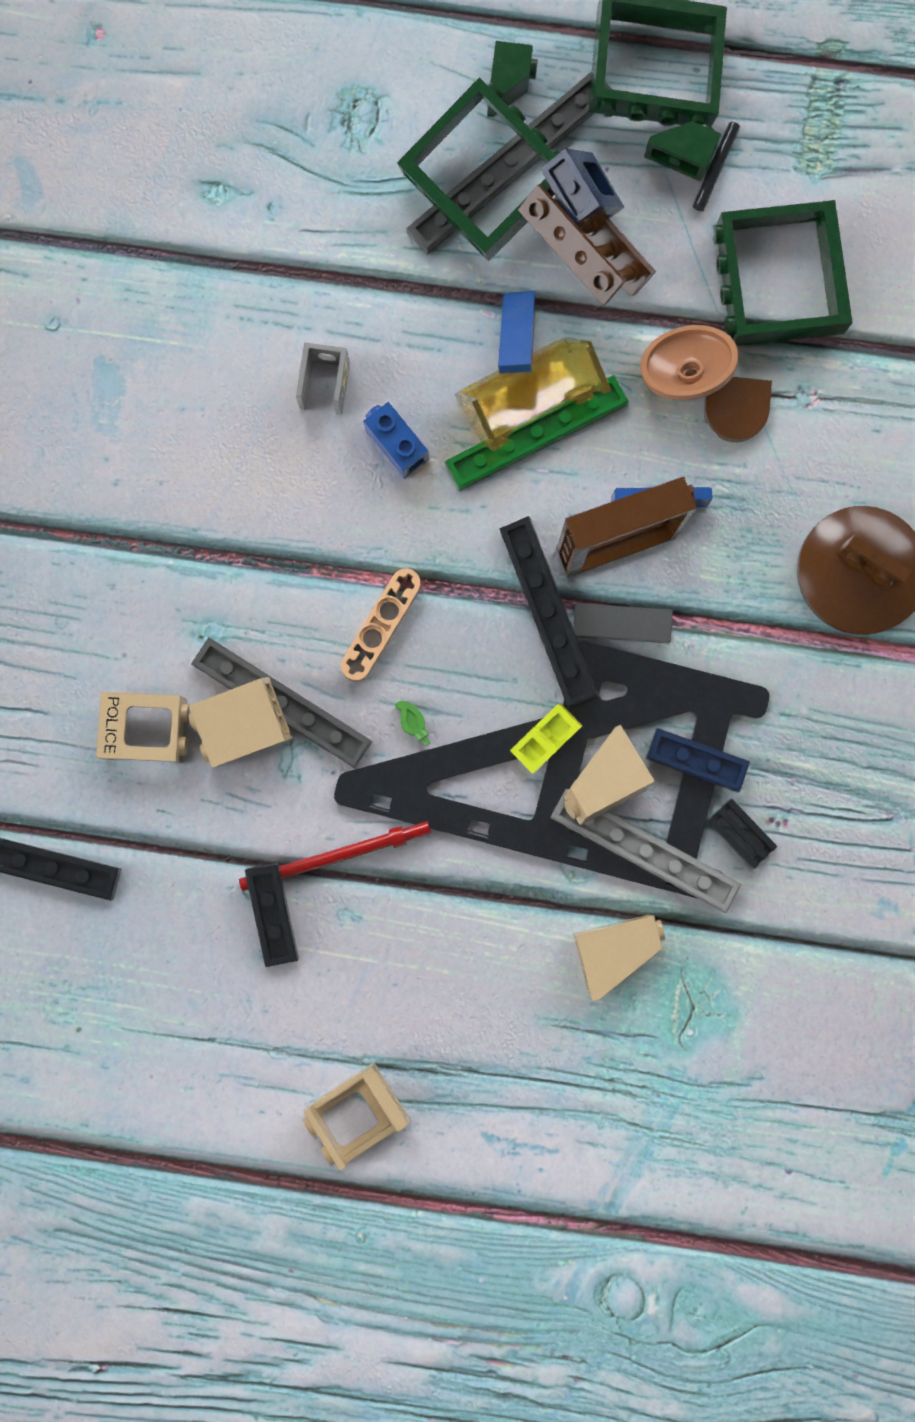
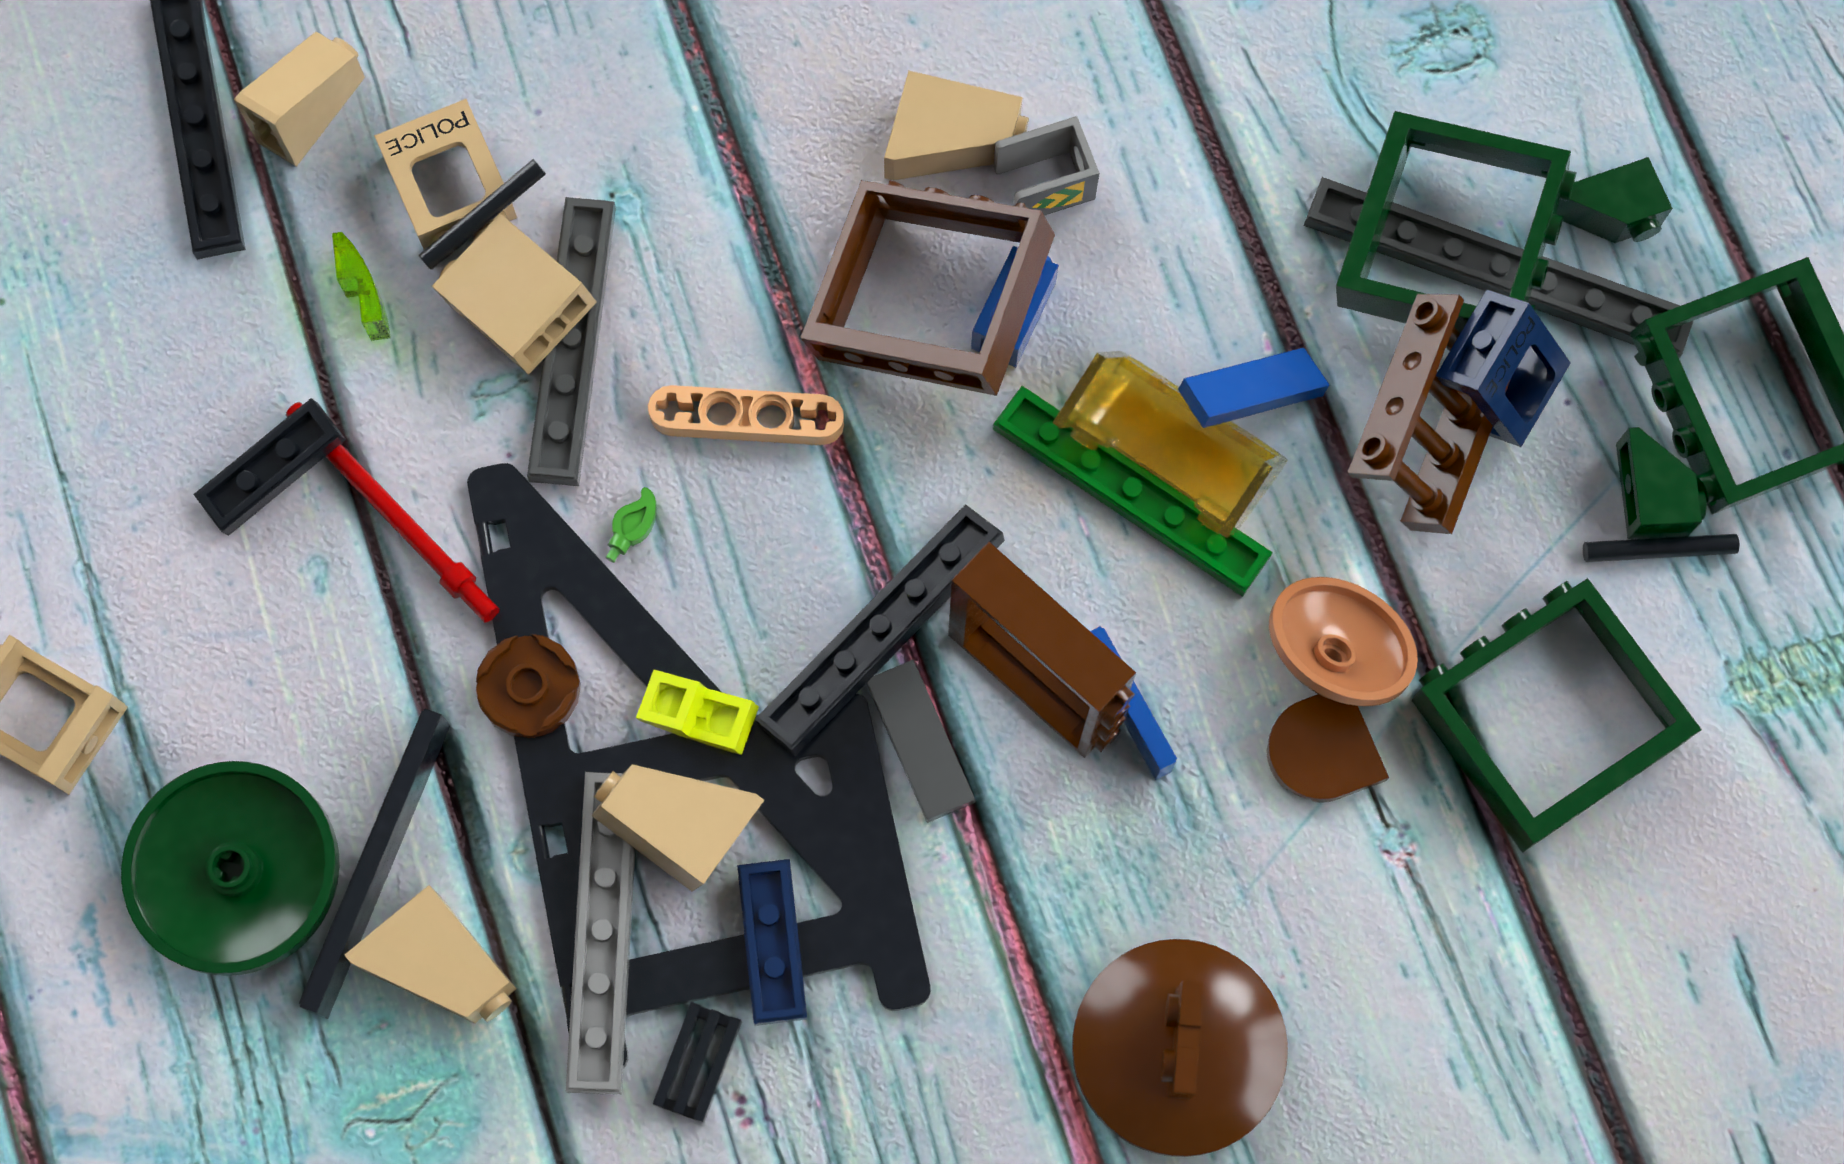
camera: 60 degrees right, 10 degrees down
(43, 788) = (300, 95): none -> tan slope
(178, 809) = (357, 281): none -> clear neon green slope
(182, 716) = (482, 214): none -> black bar
(265, 419) = (948, 126): none -> tan slope
(317, 451) = (910, 359): none -> reddish brown window
(481, 826) = (528, 686): none -> reddish brown tile
(507, 1044) = (230, 868): none -> dark green dish
(544, 961) = (375, 863): none -> black tile

